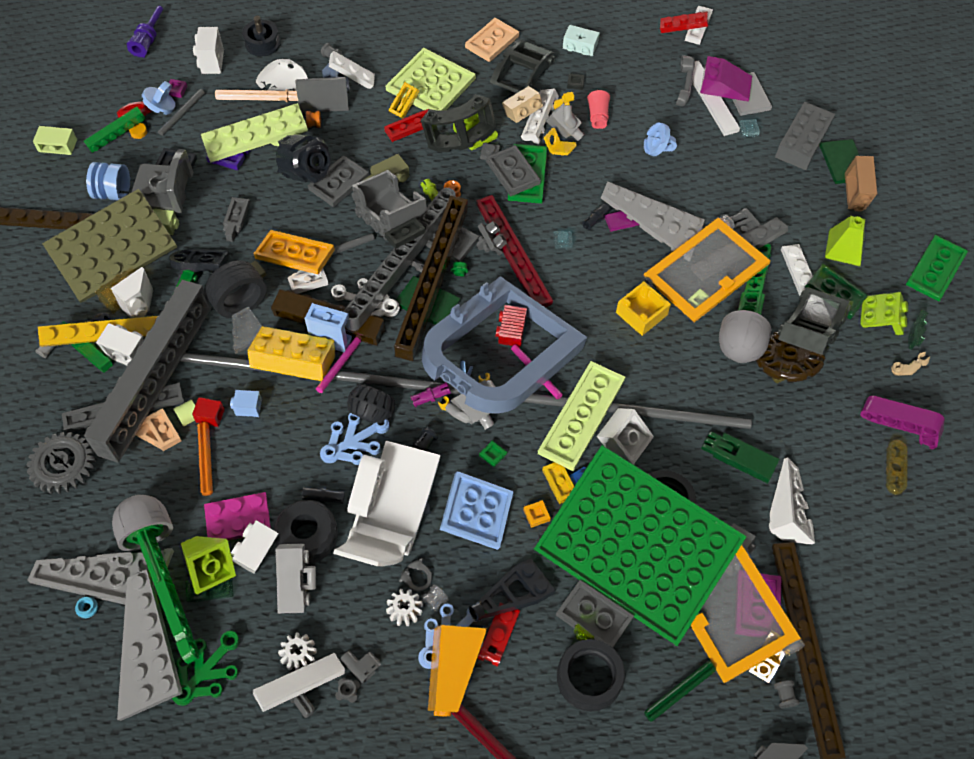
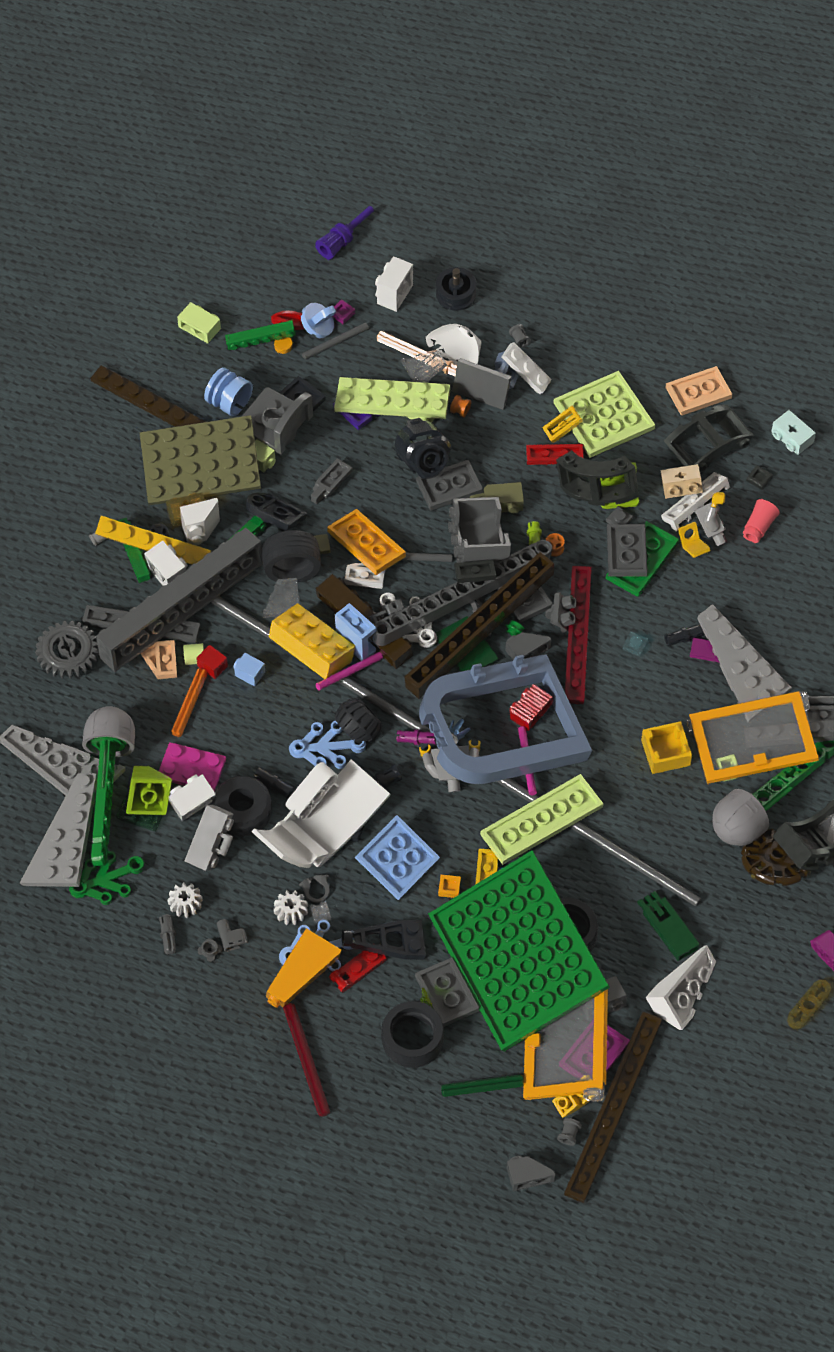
camera: 30 degrees right, 0 degrees up
(81, 603) = (32, 778): medium azure plate -> none
(267, 100) = (424, 366): none -> clear wing
(298, 682) = (174, 922): white tile -> none
(347, 296) = (387, 609): none -> dark grey piece
(477, 276) = (527, 645): none -> dark grey slope
(493, 453) = (443, 816): green tile -> none
(626, 435) = (572, 857): white slope -> none
(658, 139) = (799, 583): light blue tile -> none

